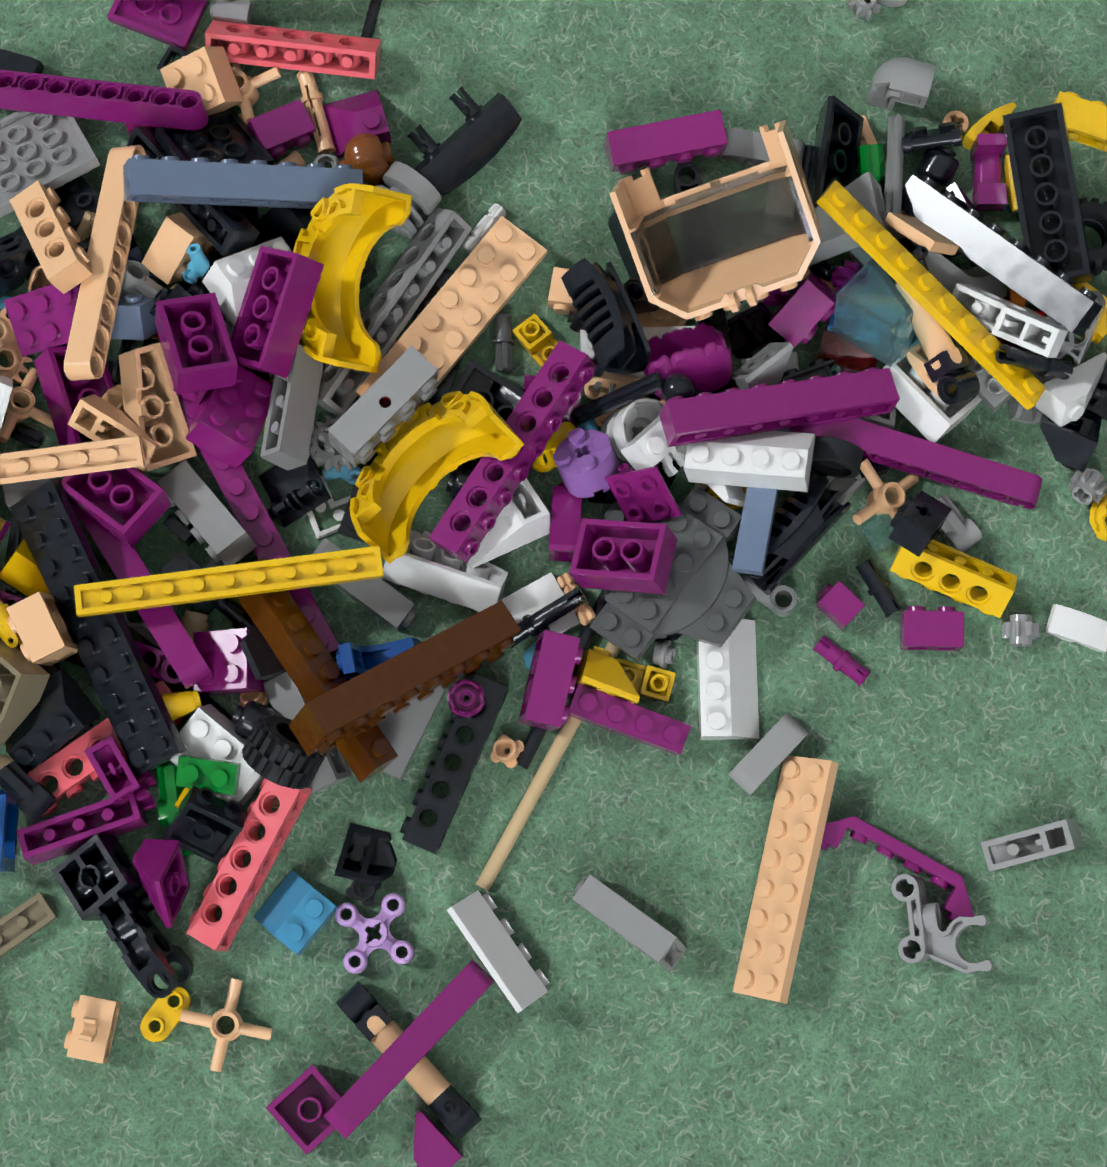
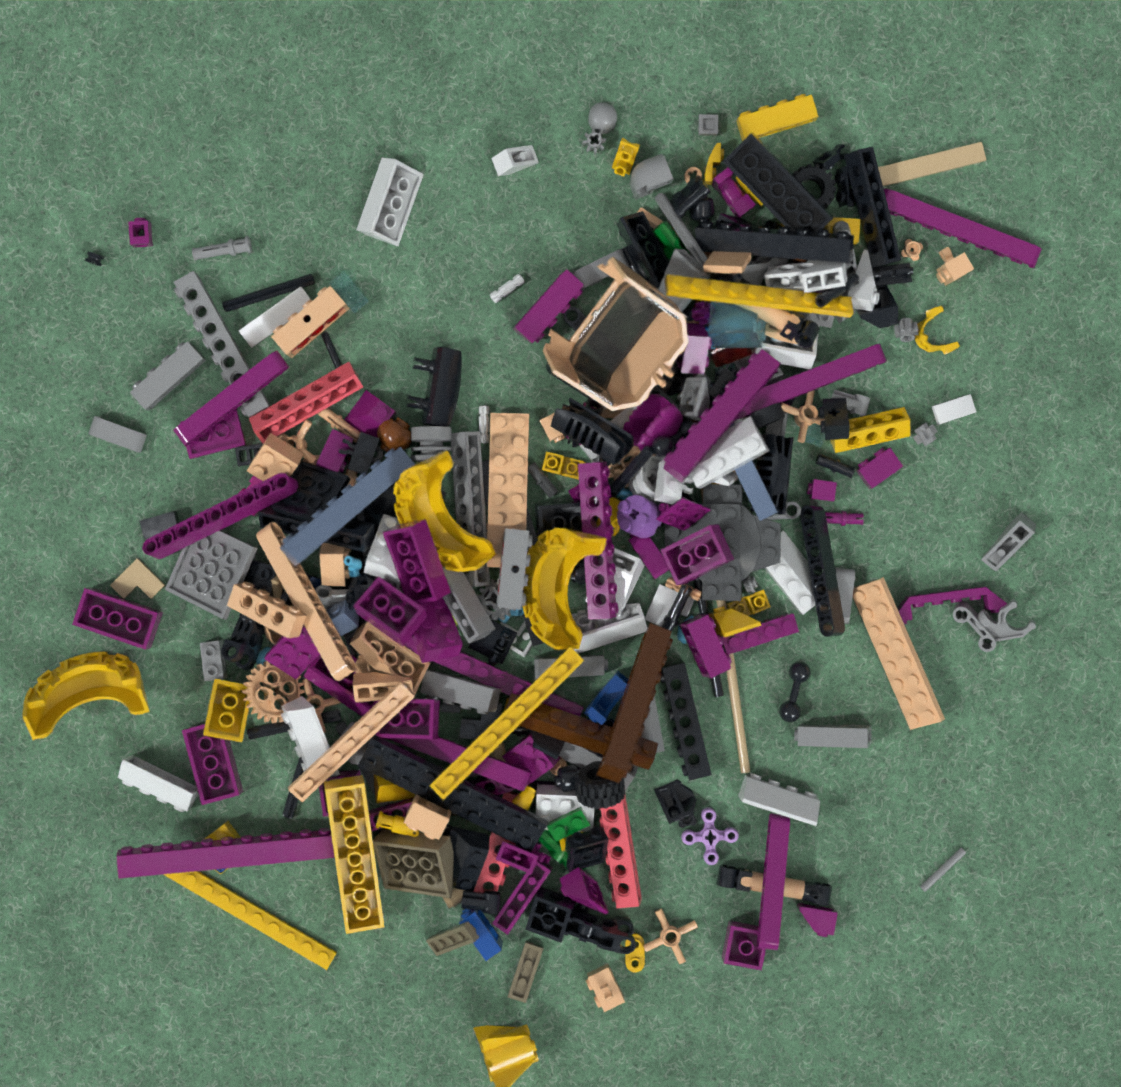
camera: 30 degrees left, 10 degrees up
(295, 912) = (662, 855): dark azure slope -> none
(315, 146) = (362, 454): none -> black brick
(459, 691) = (675, 687): magenta plate -> none
(501, 745) = (702, 696): light nougat plate -> none
(596, 849) = (799, 673): none -> black piece
(633, 94) = (507, 288): none -> white axle
(766, 701) = (823, 583): none -> black beam
(889, 42) = (625, 157): none -> yellow hips
(1016, 79) = (708, 125): none -> light grey plate

